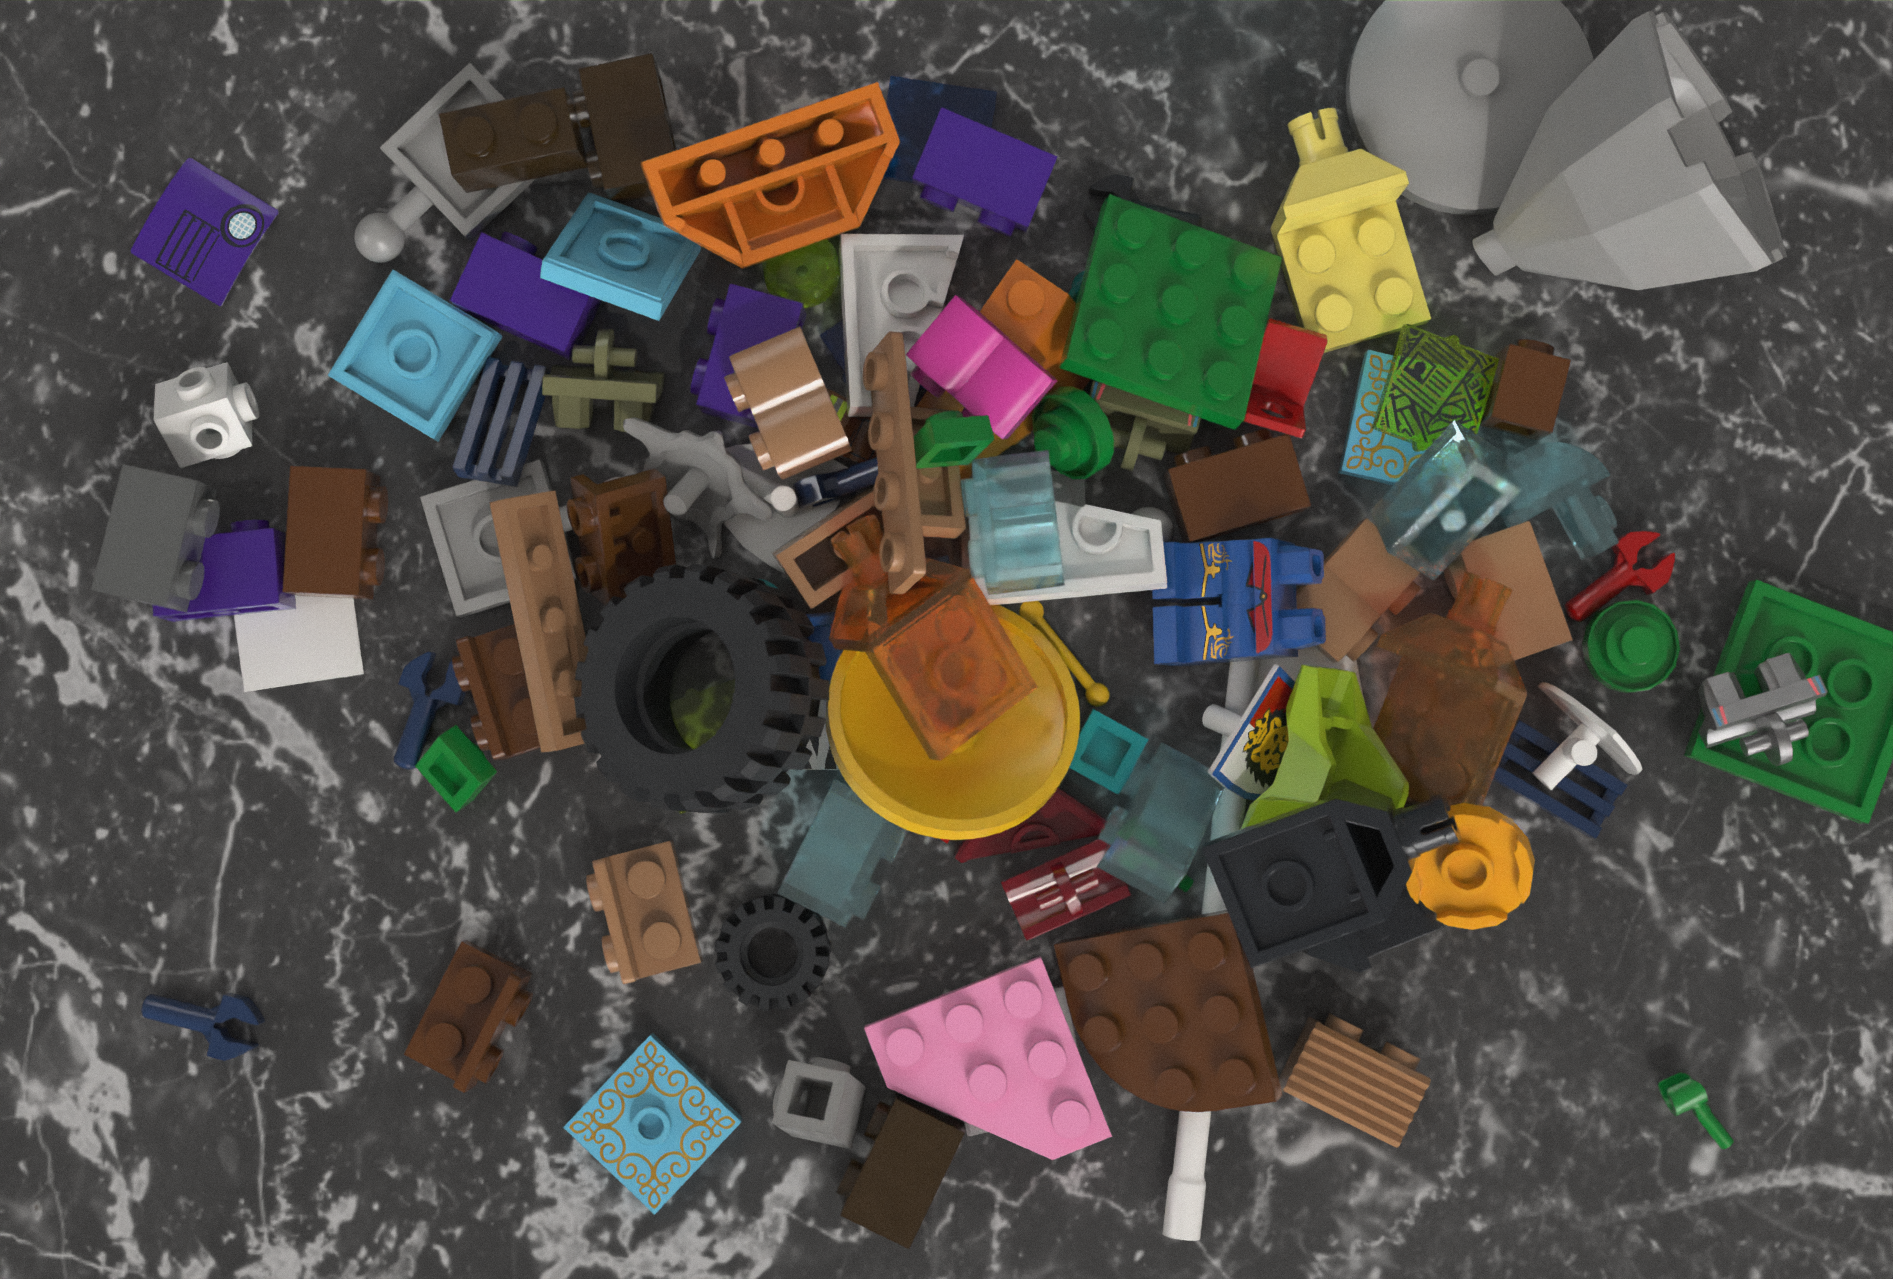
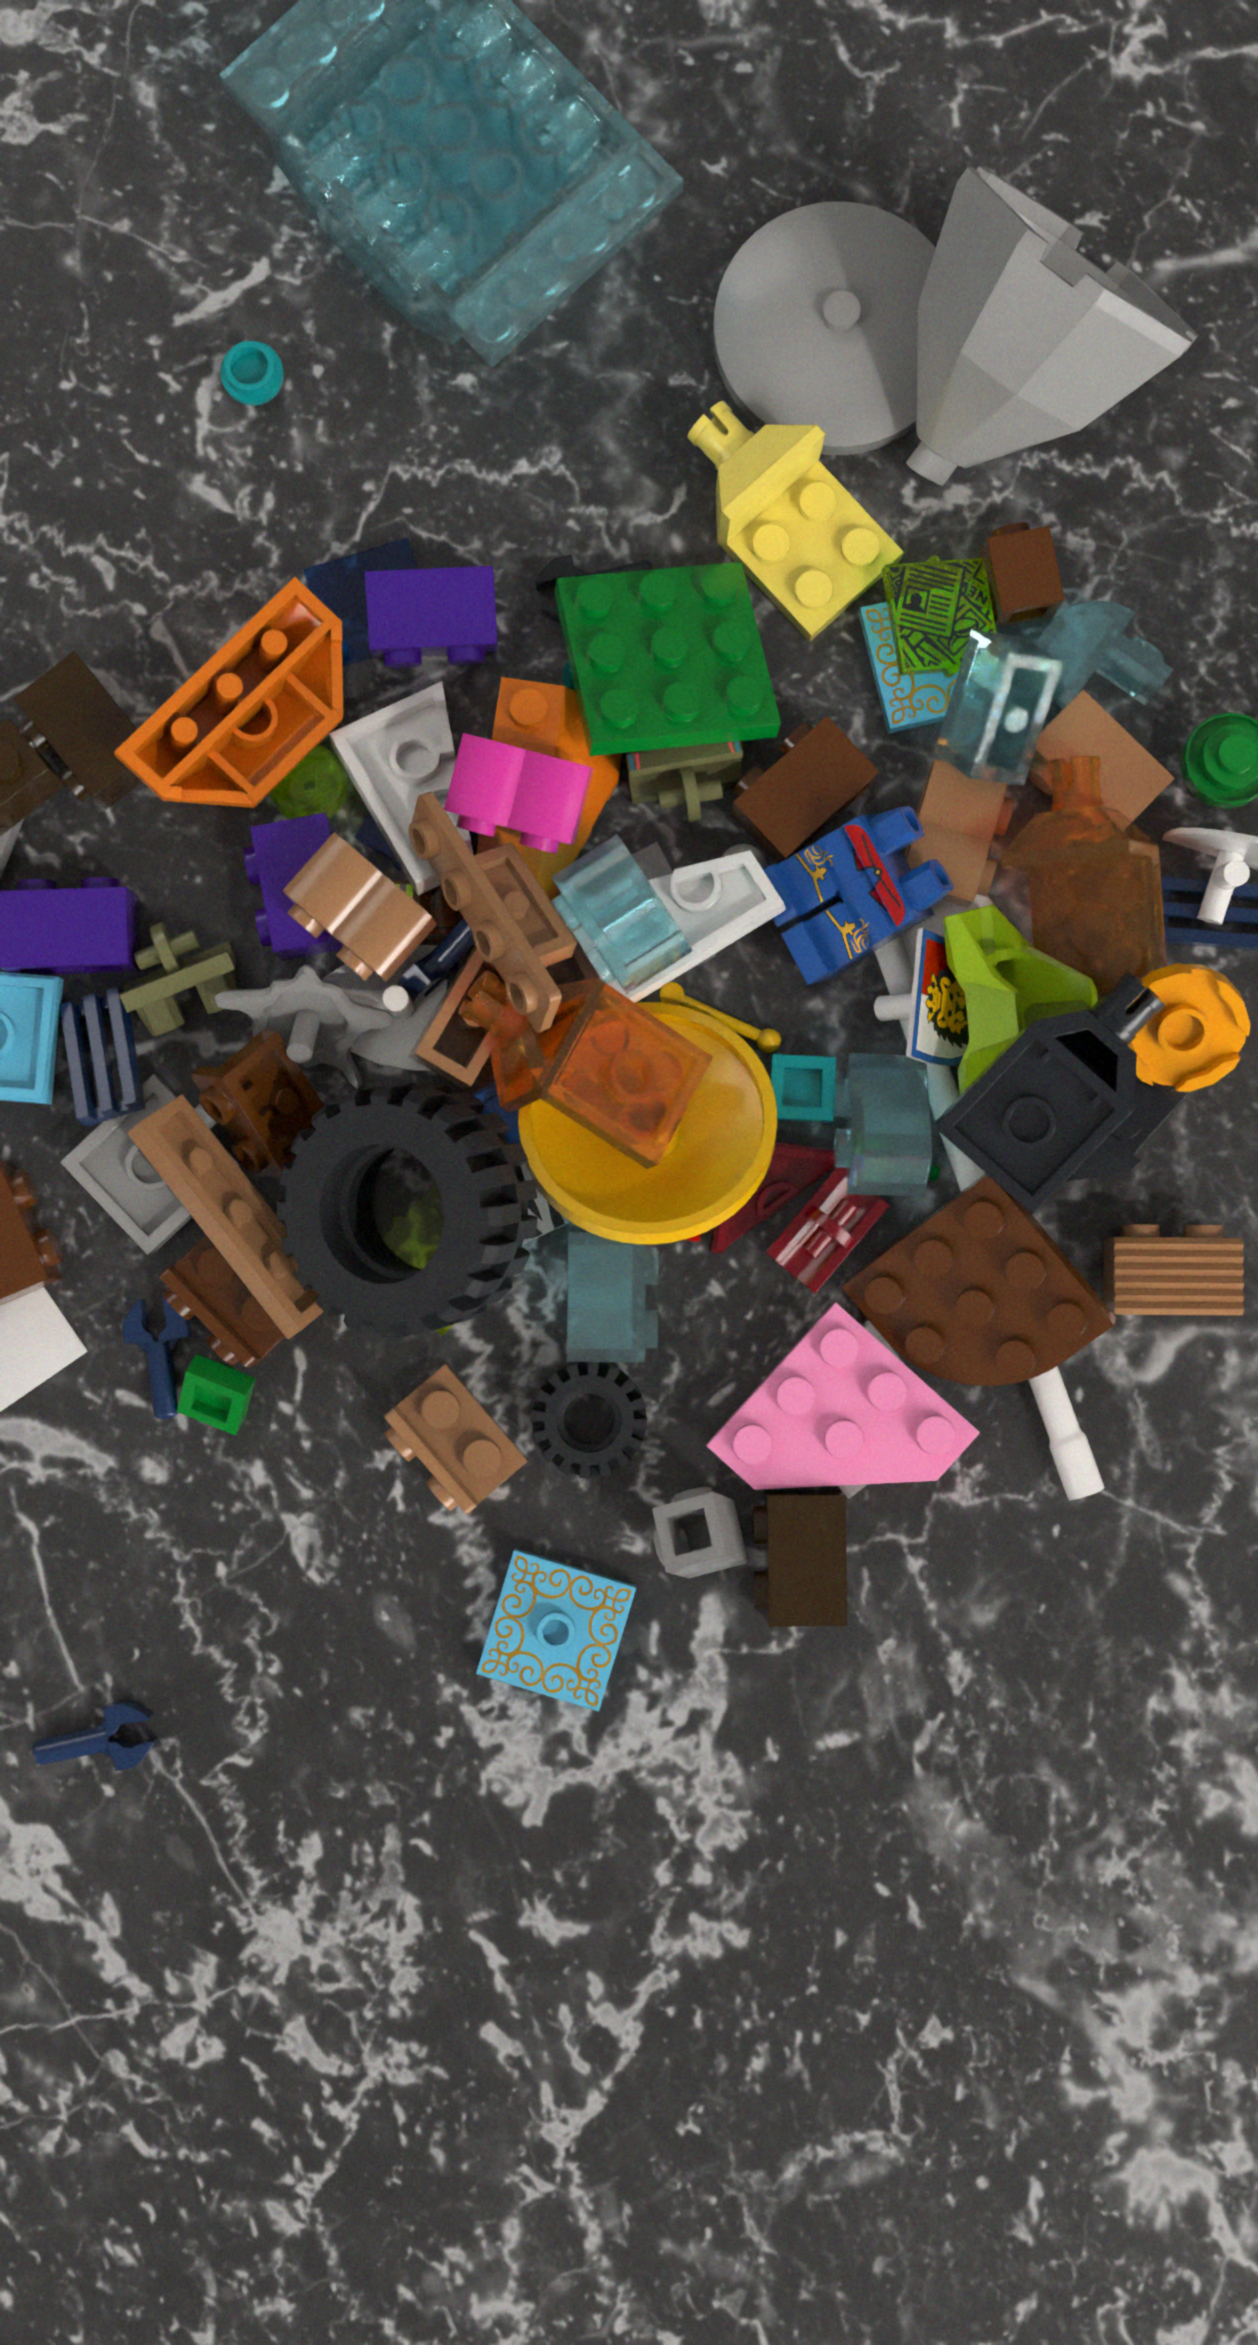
camera: 35 degrees left, 0 degrees up
(469, 1015) = (340, 1614): reddish brown bracket -> none
(620, 257) = (137, 851): medium azure plate -> none
(951, 439) = (525, 866): green plate -> none
(1073, 432) = (633, 807): green plate -> none
(1284, 377) = (797, 667): red bracket -> none
(1622, 576) = (1190, 701): red bar -> none

